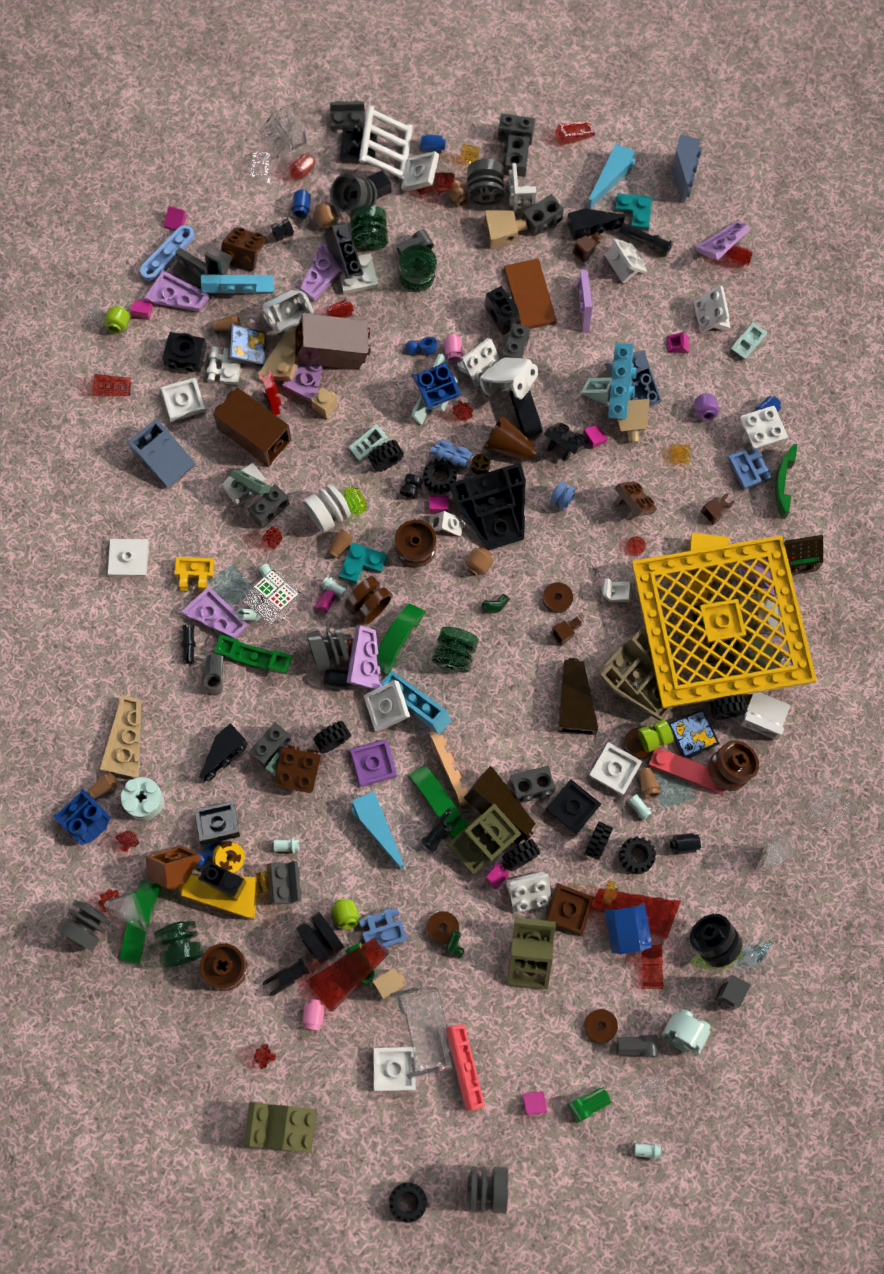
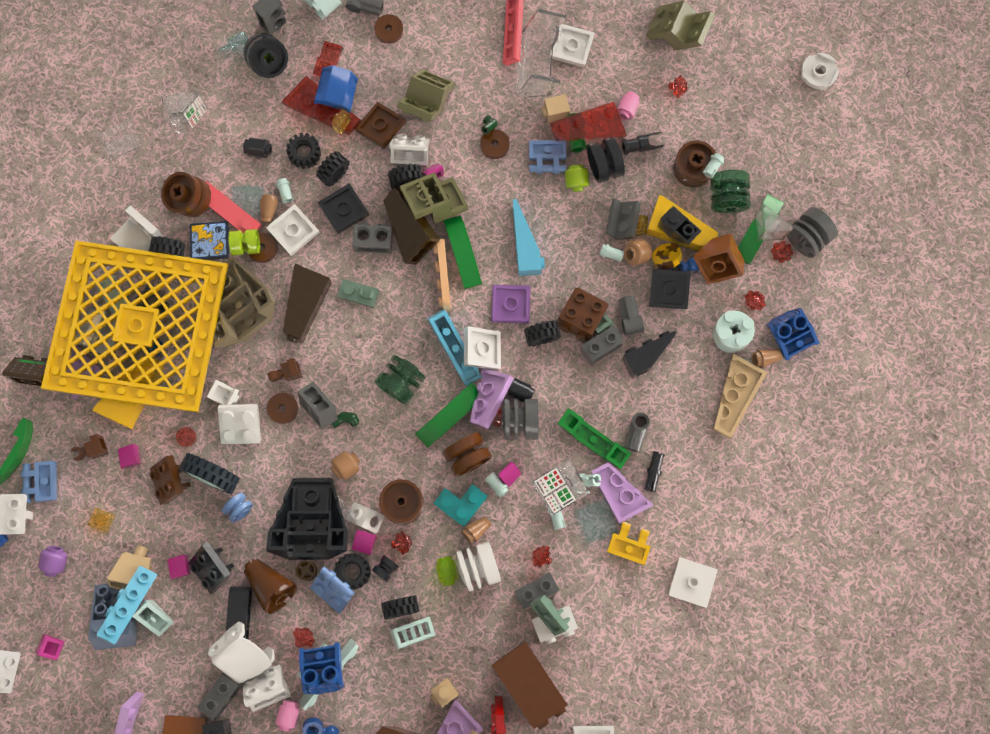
camera: 160 degrees left, 5 degrees up
(105, 1116) = (816, 80): none -> white plate
(161, 453) = (632, 686): sand blue slope -> none
(202, 960) = (714, 164): none -> light aqua pin
(248, 782) = (631, 320): none -> dark grey piece
(259, 851) = (637, 252): none -> medium nougat head
(403, 512) = (402, 542): none -> clear red plant
(440, 831) = (469, 219): black piece -> none
(524, 603) = (317, 405): none -> dark grey brick
(527, 727) = (358, 293): none -> sand green plate
(591, 568) = (239, 424): none -> white plate
(597, 510) = (209, 473): none -> black wheel
(680, 513) = (129, 456): none -> dark pink slope

